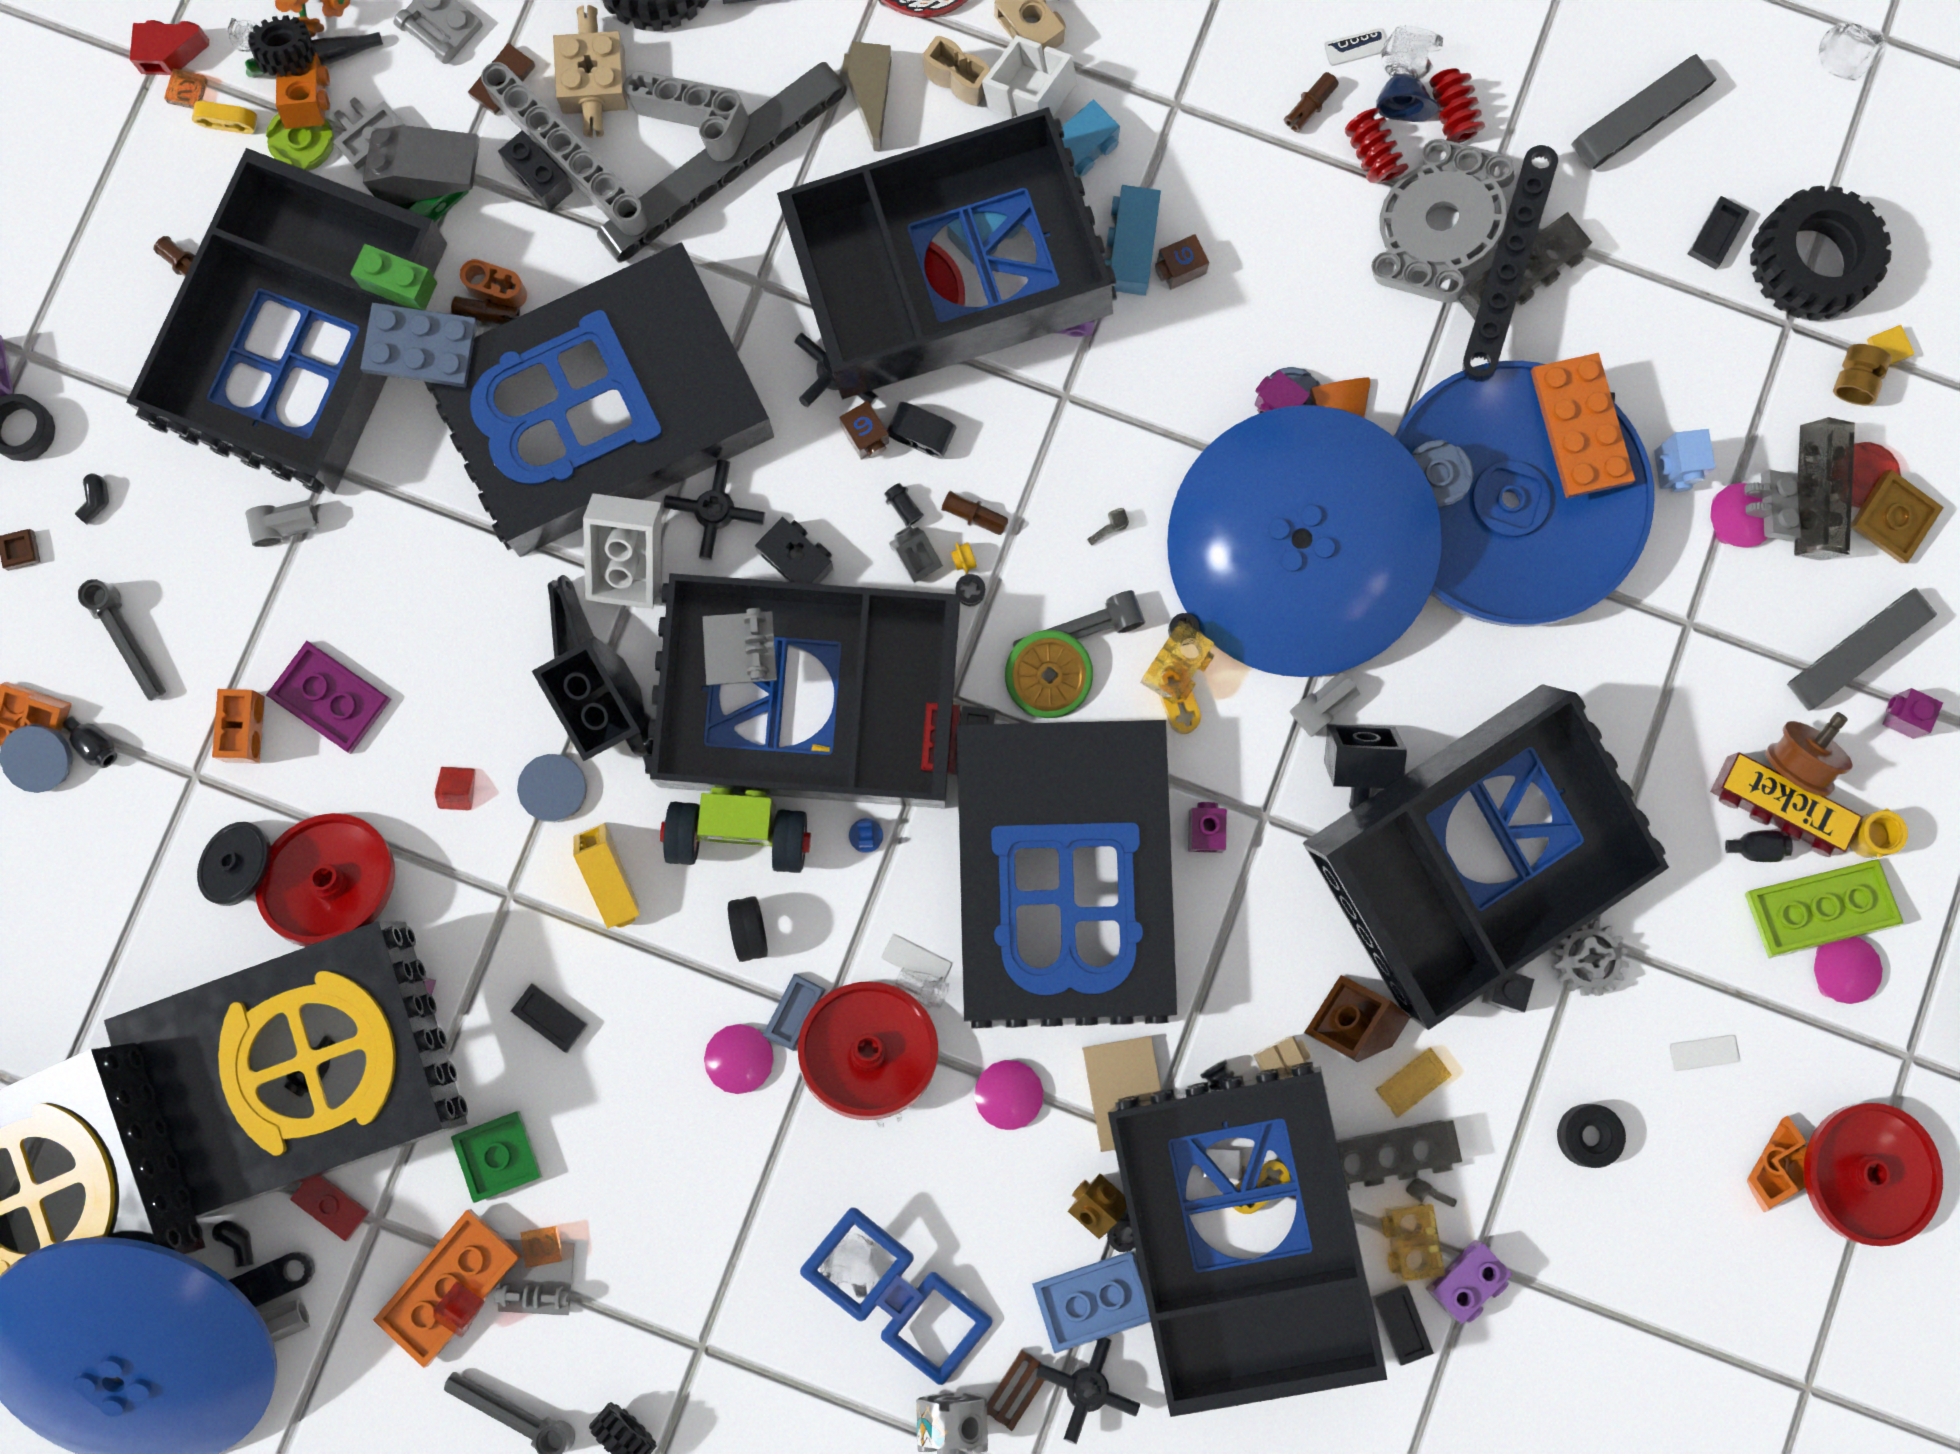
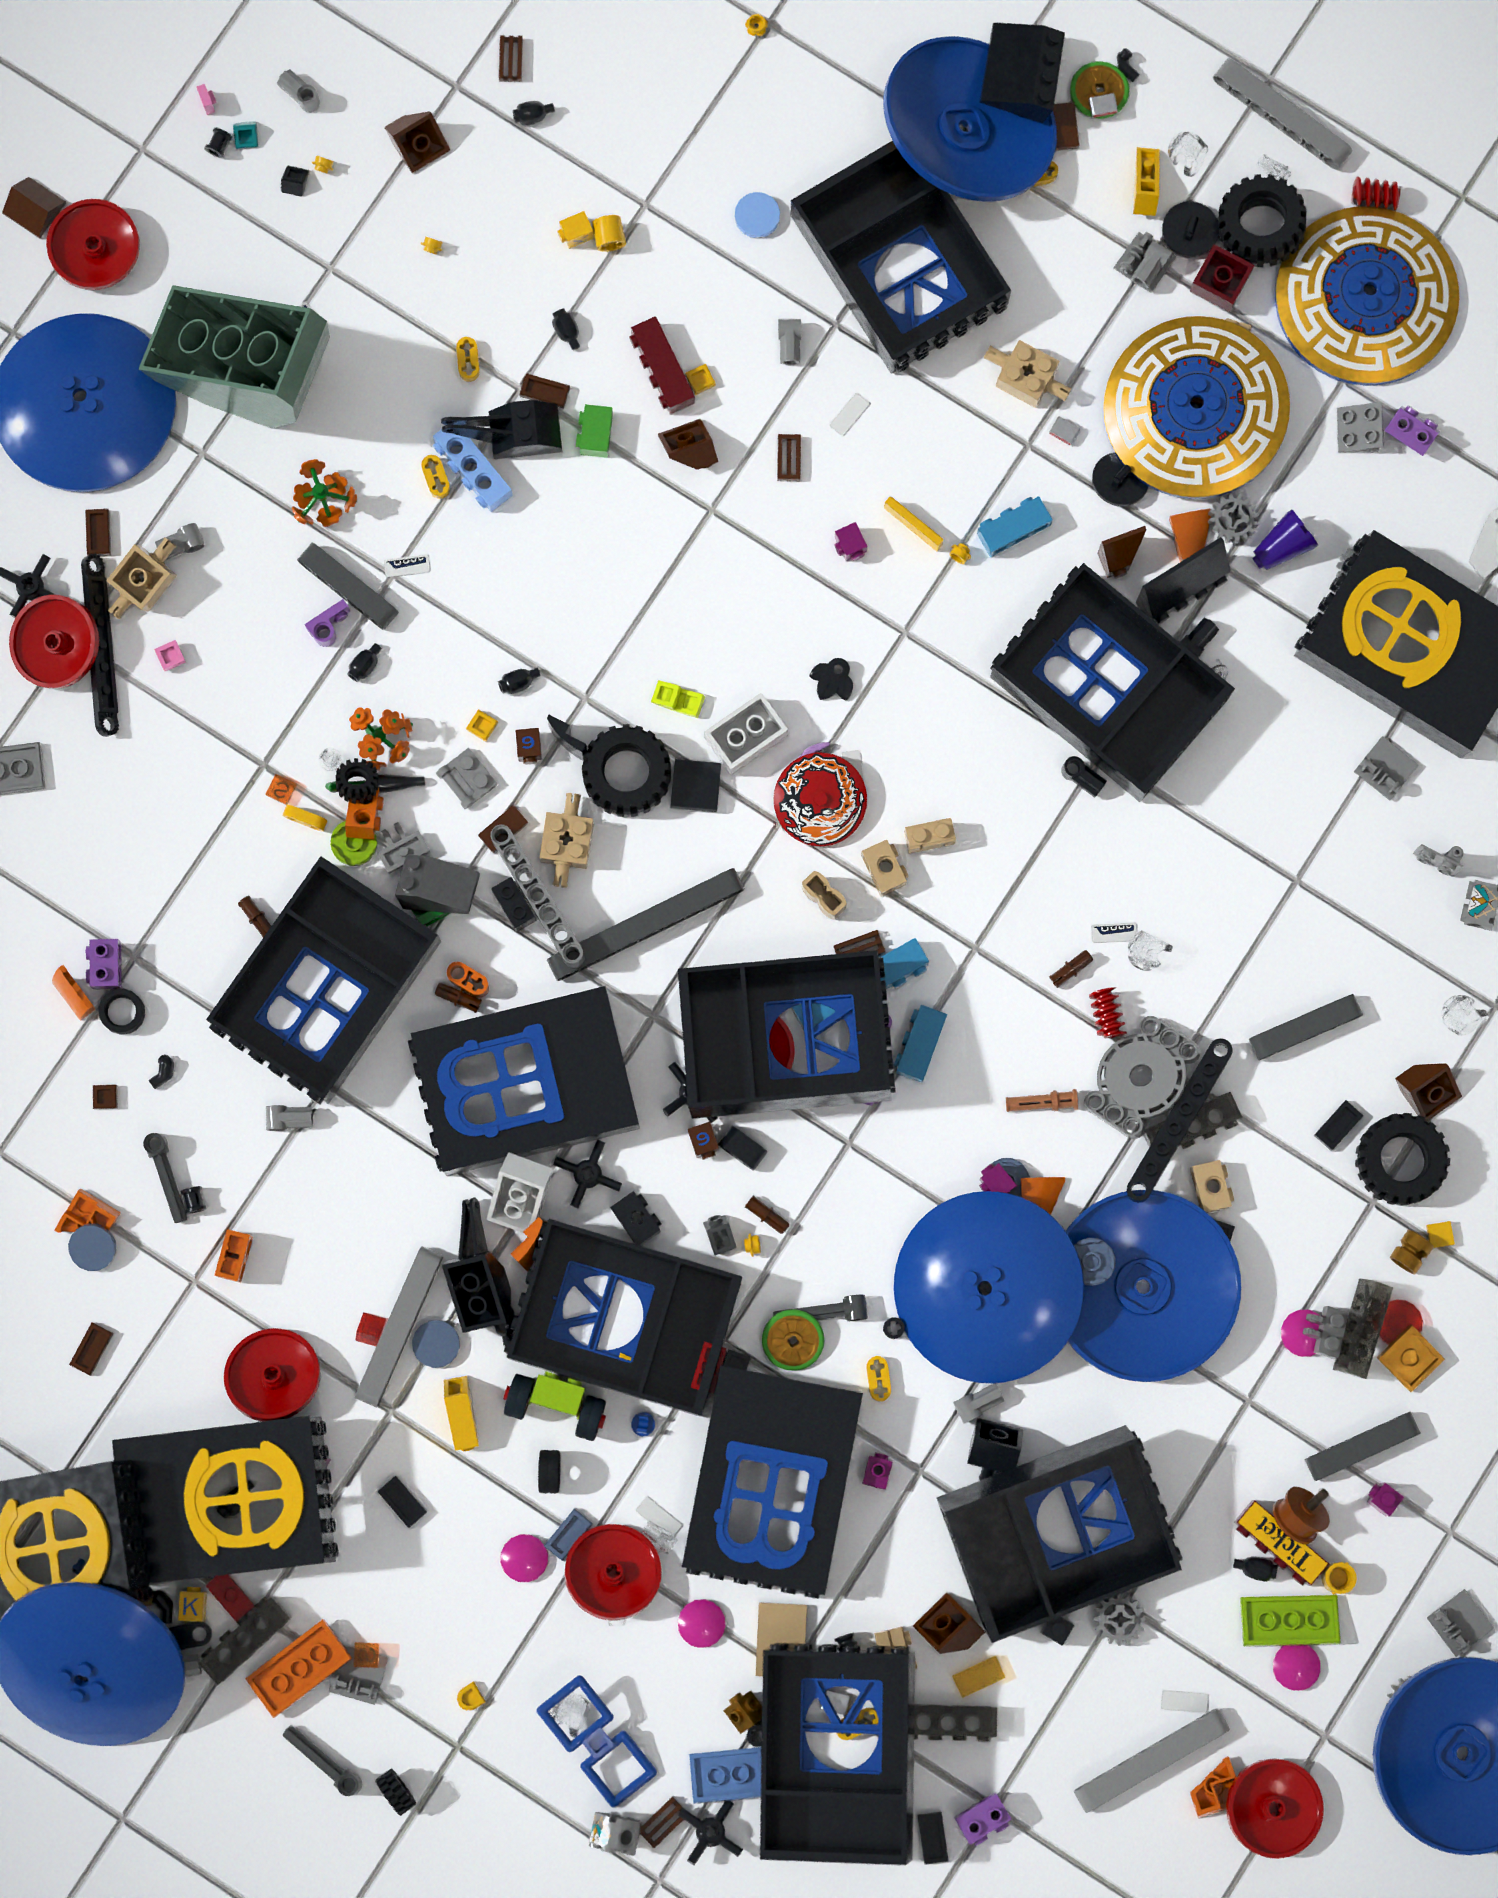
camera: 15 degrees right, 0 degrees up
(63, 901) = (91, 1349): none -> reddish brown tile
(90, 743) = (130, 1244): black plant -> none
(164, 47) = (273, 758): red slope -> none
(168, 662) = (193, 1200): none -> black bush
(234, 863) = (212, 1349): black shield -> none
(276, 1231) = (192, 1605): none -> yellow brick
(319, 1305) = (220, 1670): none -> clear smoke brick
(328, 697) = (296, 1247): magenta tile -> none
(394, 278) = (405, 975): bright green brick -> none
(419, 345) = (411, 1023): sand blue plate -> none
(458, 1309) = (304, 1684): clear red slope -> none
(493, 776) = (399, 1326): none -> light grey beam
(496, 1156) = (348, 1588): green plate -> none
(645, 632) = (524, 1252): none -> orange slope
(703, 1273) = (470, 1697): none -> yellow tile
(711, 108) = (626, 883): light grey beam -> none
(739, 647) = (585, 1281): light grey hinge -> none
(869, 76) = (761, 887): dark tan slope -> none
(903, 504) = (719, 1198): black pin -> none
(966, 580) = (751, 1261): black bush -> none
(1020, 79) = (869, 919): white piece -> none
(1119, 522) = (866, 1241): clear smoke hand -> none
(1171, 659) = (878, 1349): clear yellow brick -> none
(1181, 262) = (951, 1067): reddish brown brick -> none
(1332, 282) = (1012, 1103): none -> nougat pin
(1406, 99) = (1136, 981): dark blue hat -> none
(1420, 1189) = (966, 1749): clear smoke hand -> none
(1422, 1238) = (958, 1783): clear yellow brick -> none
(1455, 105) = (1172, 995): red piece -> none
(1567, 326) = (1207, 1200): none -> tan brick
(1582, 425) = (1199, 1249): orange plate -> none
(1611, 1132) = (1103, 1746): black tyre -> none
(1682, 1145) = (1151, 1760): none -> light grey beam
(1684, 459) = (1267, 1287): light blue brick -> none
(1828, 153) = (1428, 1088): none -> reddish brown slope

